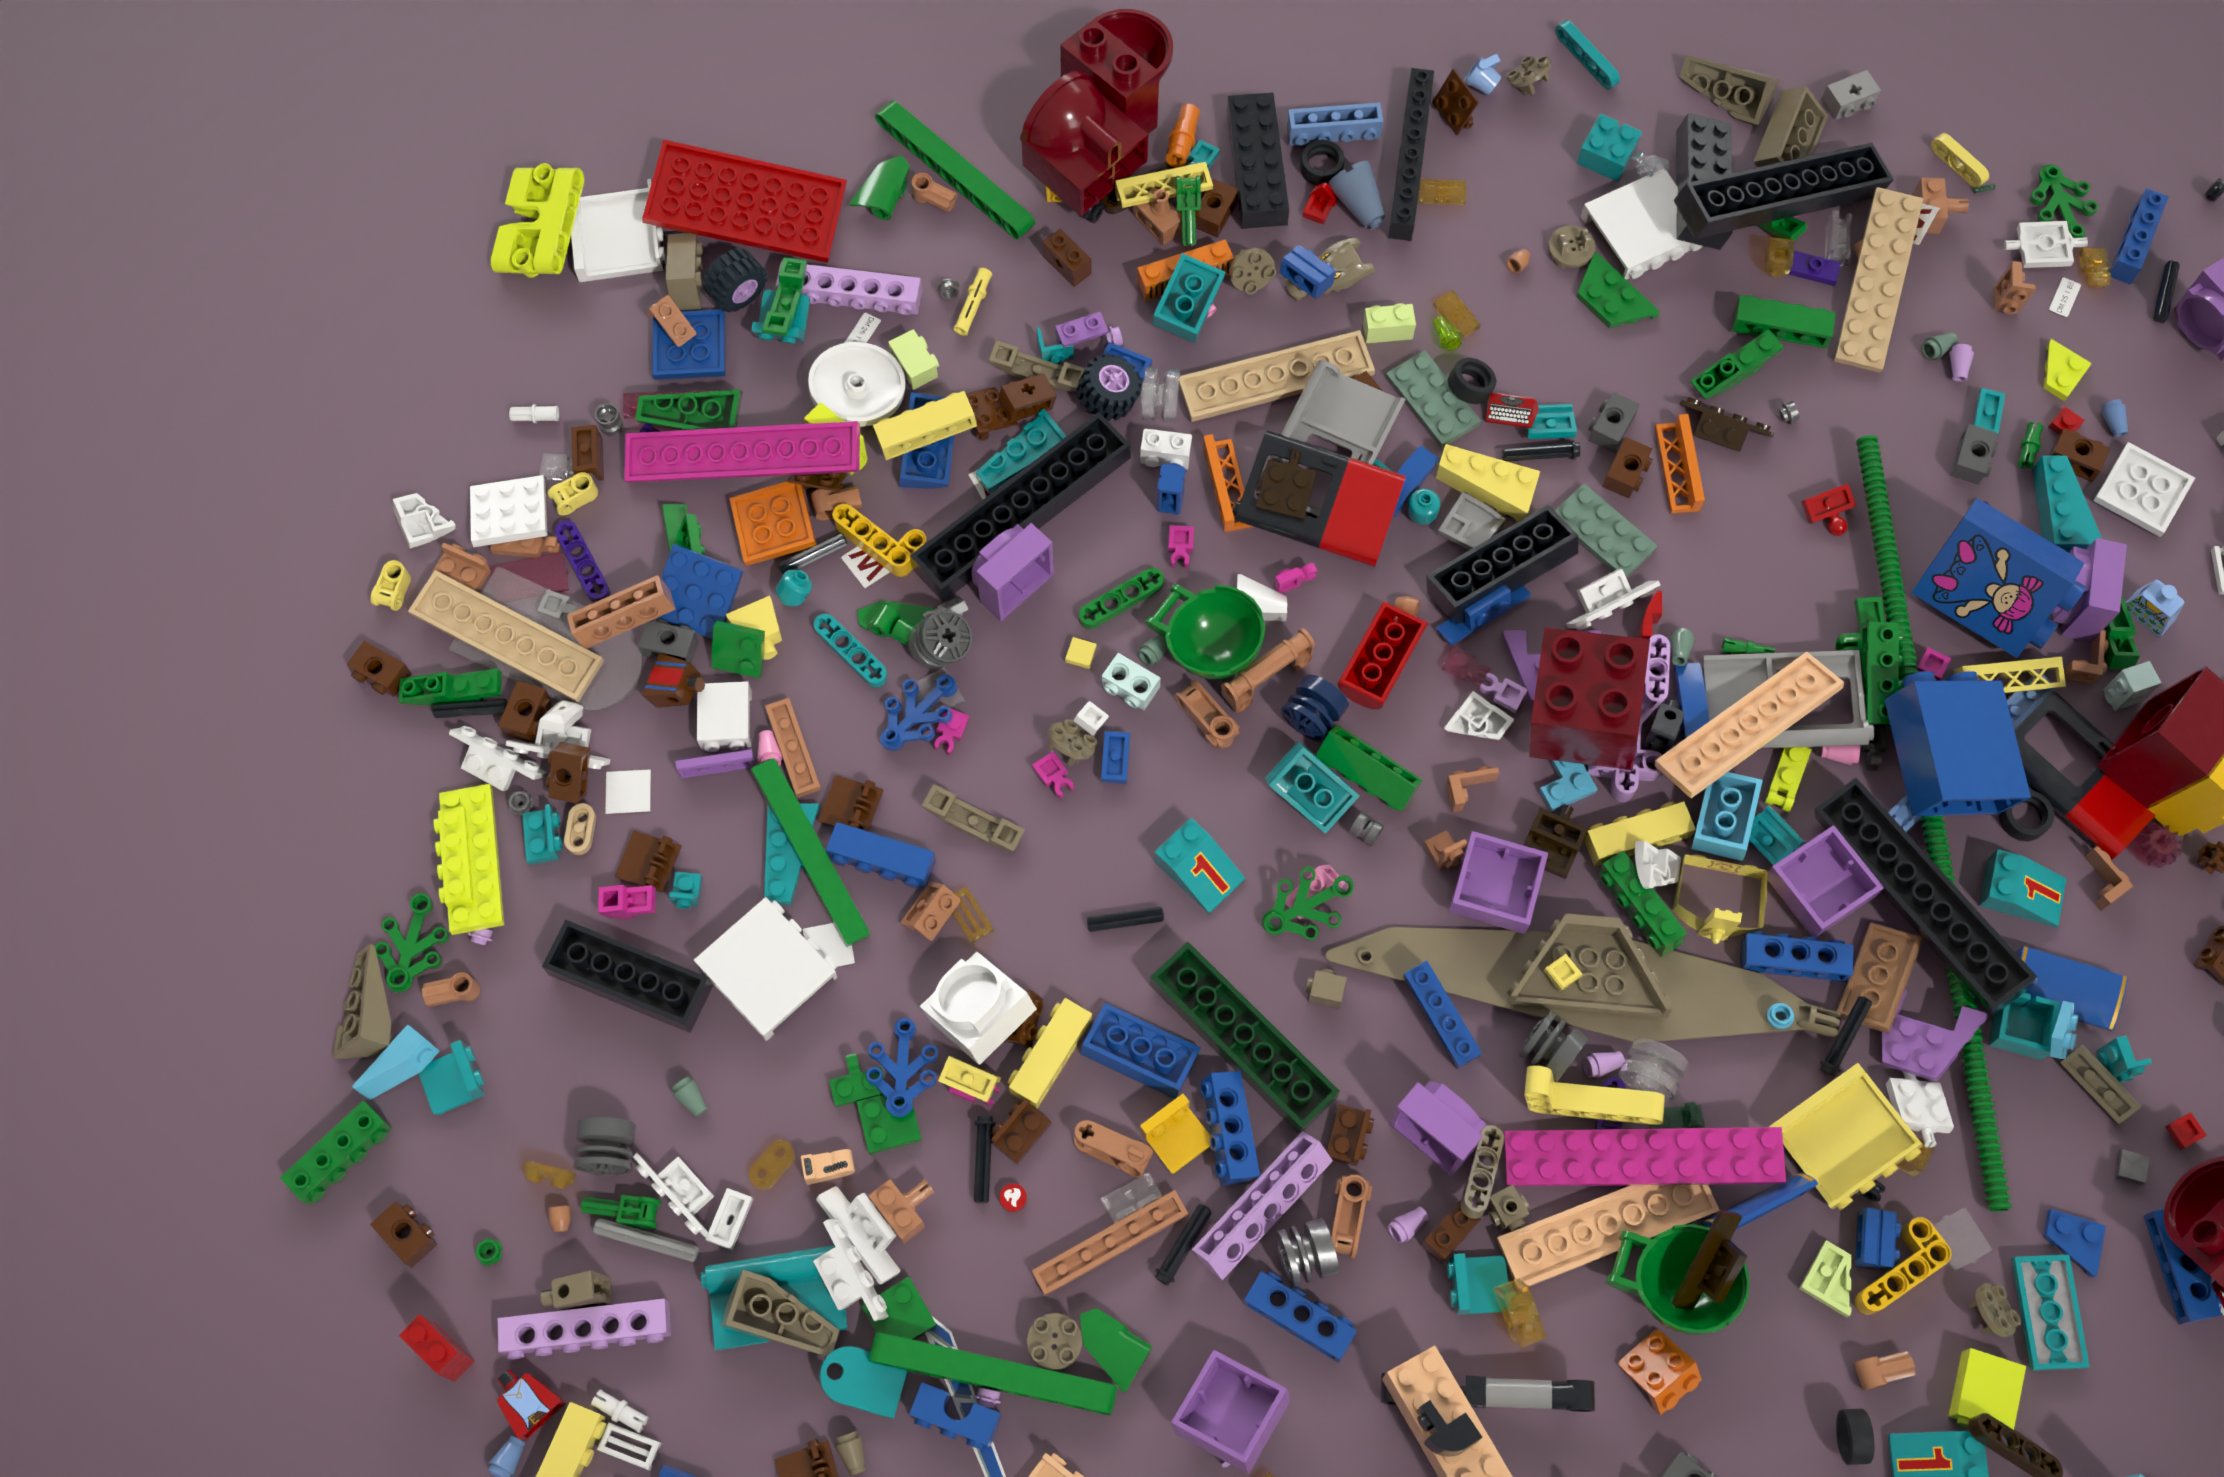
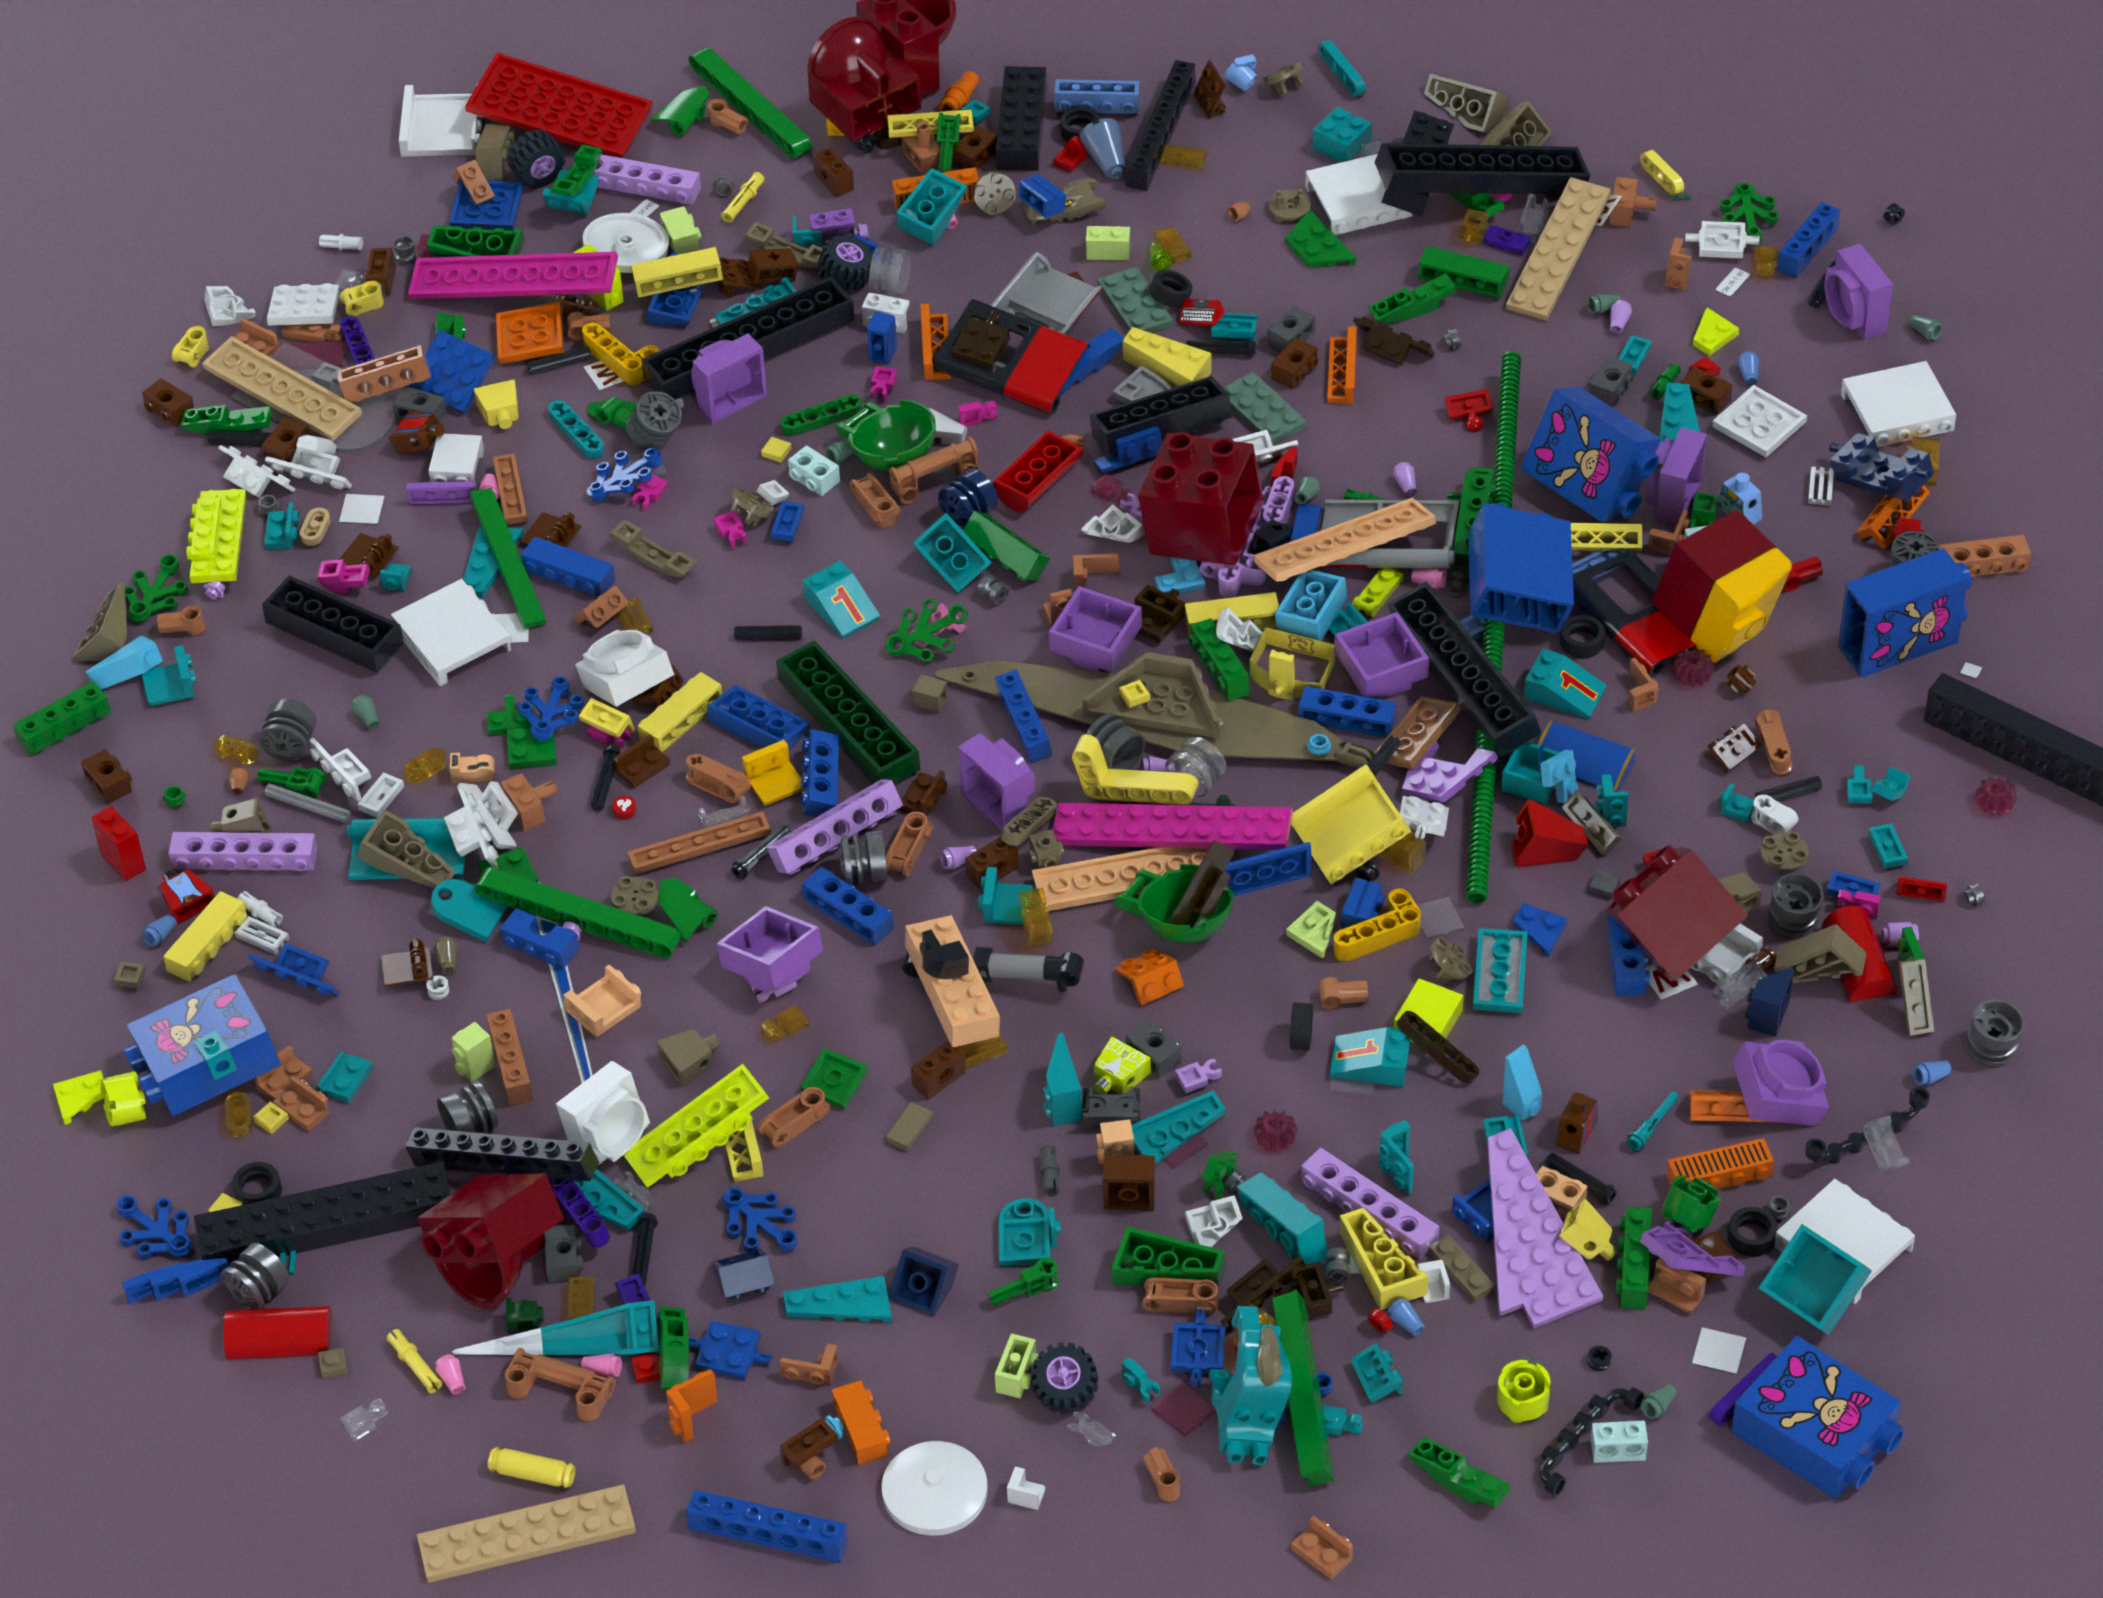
camera: 10 degrees right, 20 degrees down
(539, 245) = (381, 99): neon yellow connector -> none
(576, 761) = (323, 473): reddish brown brick -> none
(738, 649) = (478, 413): green plate -> none
(793, 588) = (536, 378): teal head -> none
(1270, 375) = (986, 272): tan plate -> none
(1423, 506) = (1103, 372): teal head -> none
(1784, 615) = (1405, 477): none -> lavender cone
(1851, 95) = (1575, 117): light grey brick -> none
(2057, 1115) = (1546, 837): none -> red slope

